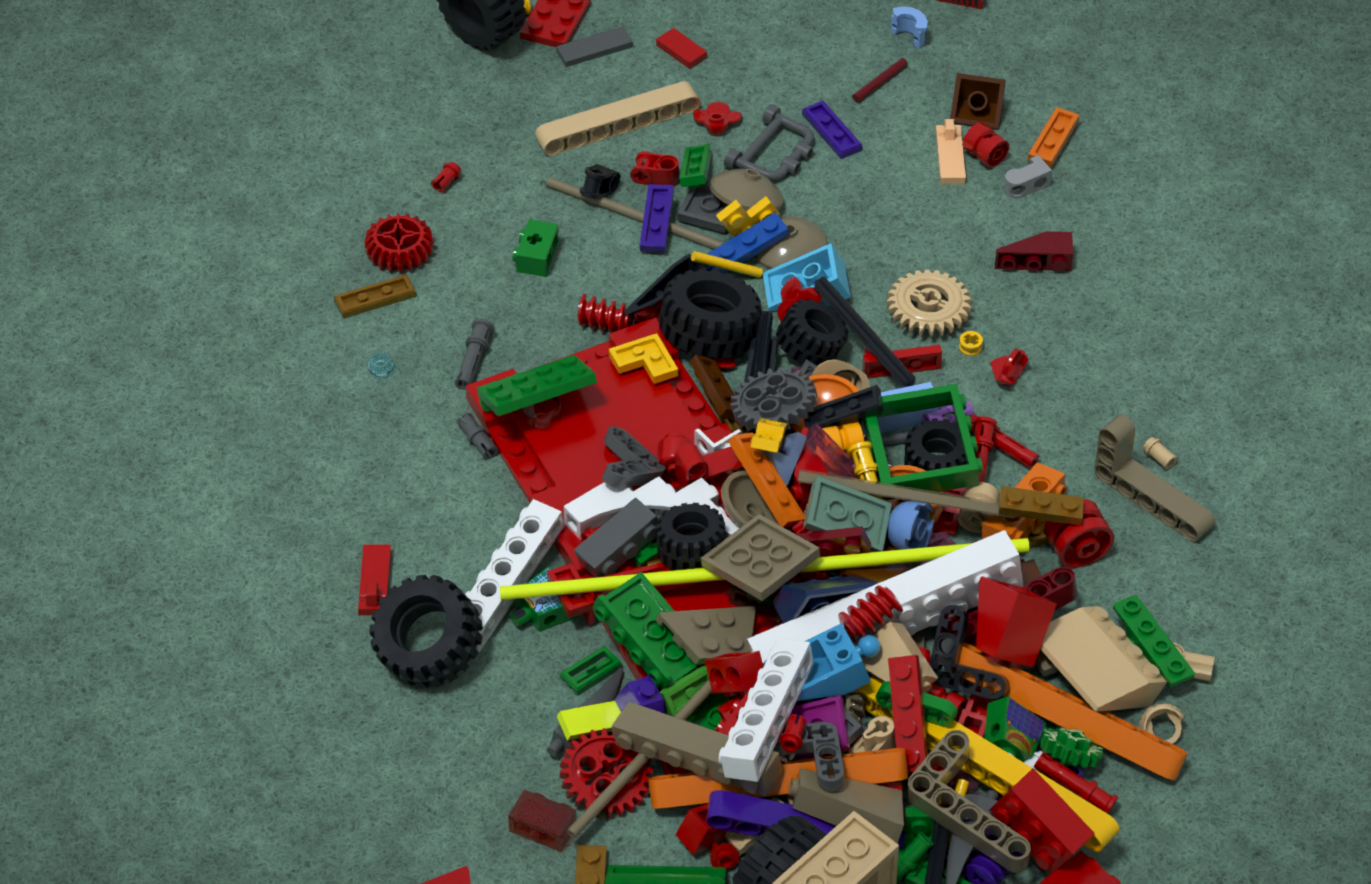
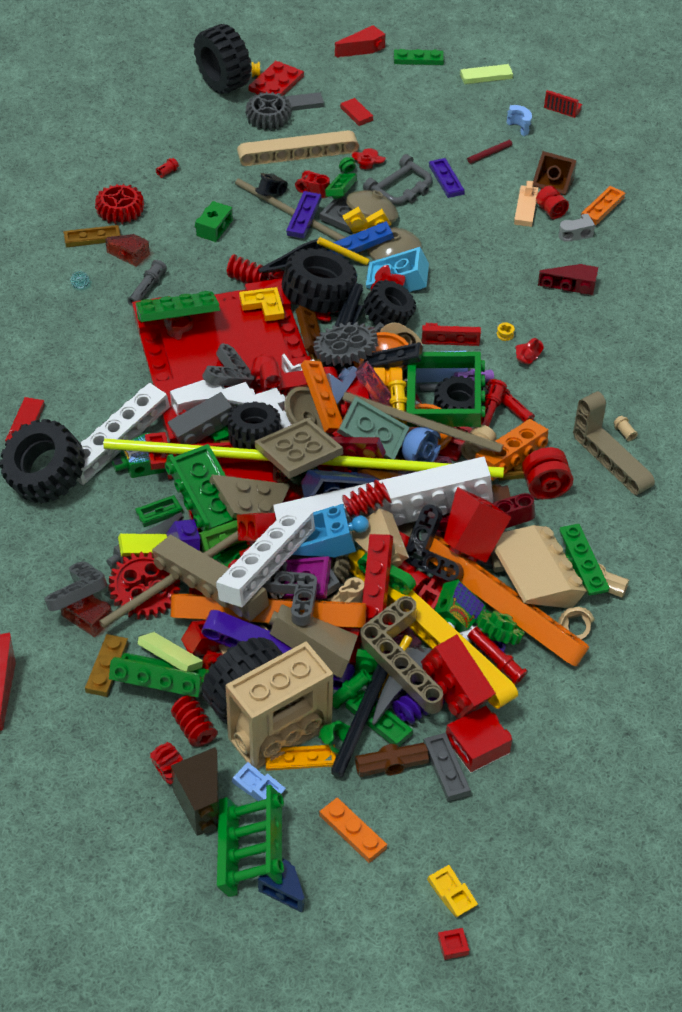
camera: 10 degrees right, 0 degrees up
(432, 307) = (128, 248): none -> clear red slope
(477, 436) = (131, 337): dark grey pin -> none
(537, 785) = (87, 582): none -> dark grey beam
(561, 72) = (268, 110): none -> dark grey gear
(666, 854) = (170, 652): none -> yellowish green tile
(692, 132) = (347, 164): none -> green plate
(769, 435) = (331, 364): yellow slope -> none
(791, 738) = (279, 580): red pin -> none
(864, 332) = (427, 309): black axle -> none
(931, 309) = (482, 304): tan gear -> none
(1041, 505) = (520, 446): pearl gold plate -> none

